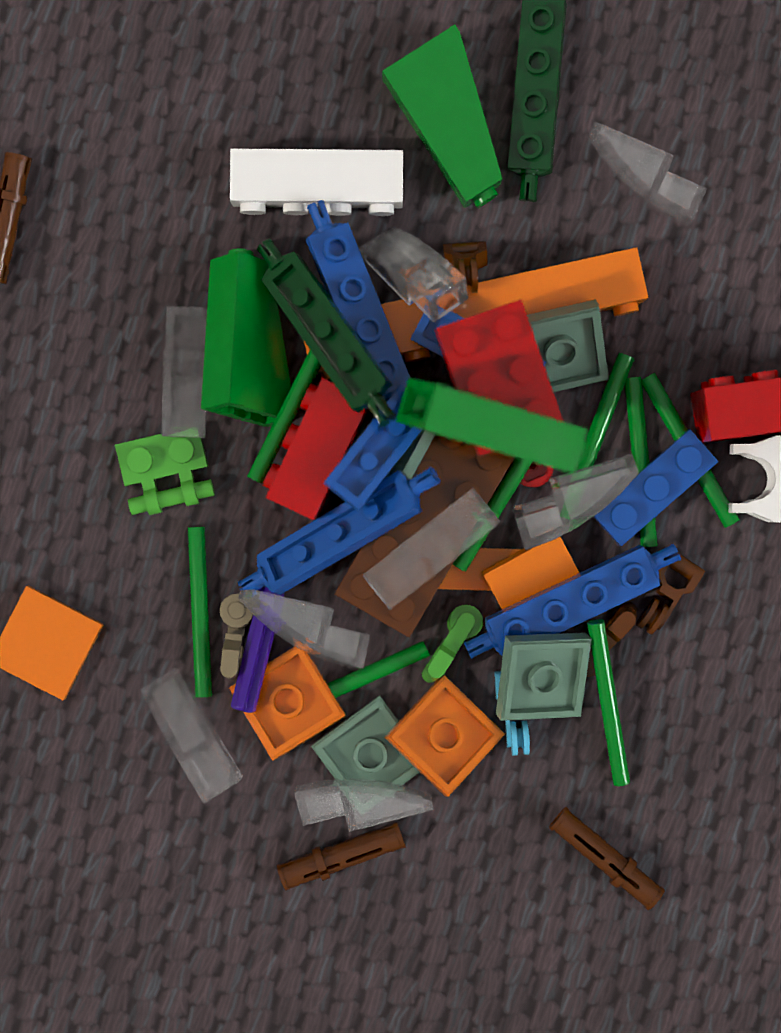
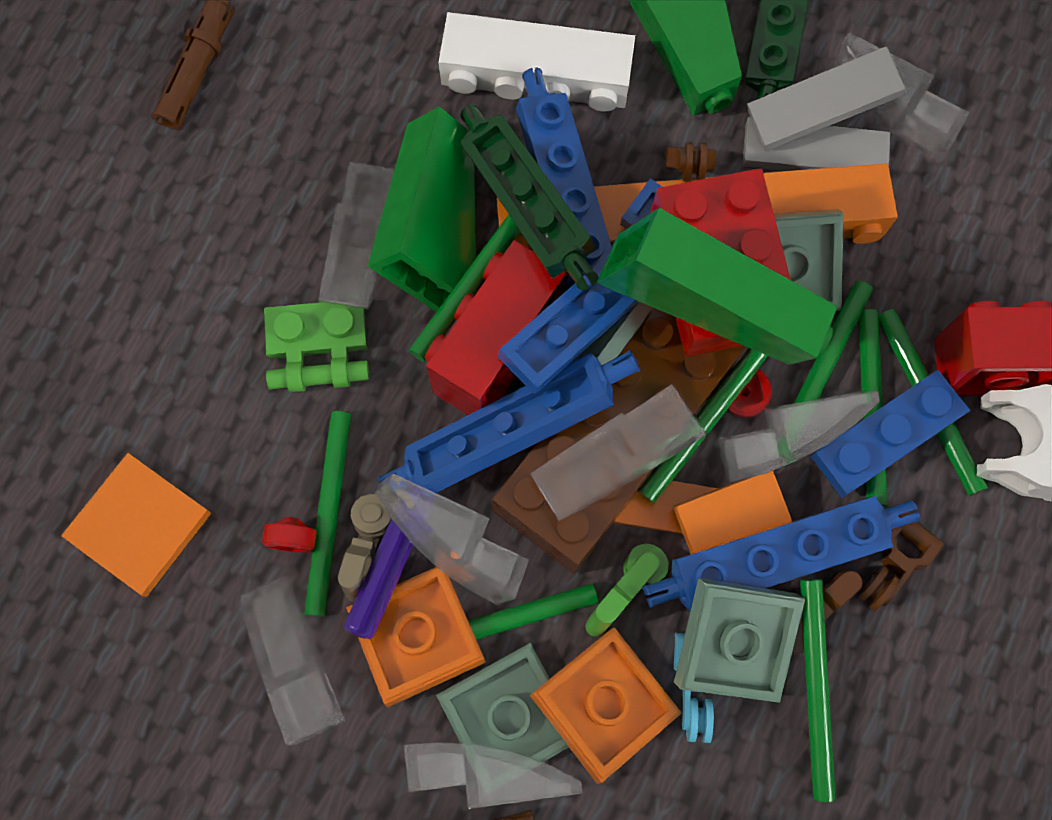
camera: 10 degrees right, 15 degrees down
(173, 637) = (289, 536): none -> red tile
(416, 272) = (640, 154): clear slope -> none
(576, 229) = (820, 149): none -> light grey tile
(578, 191) = (826, 98): none -> light grey tile

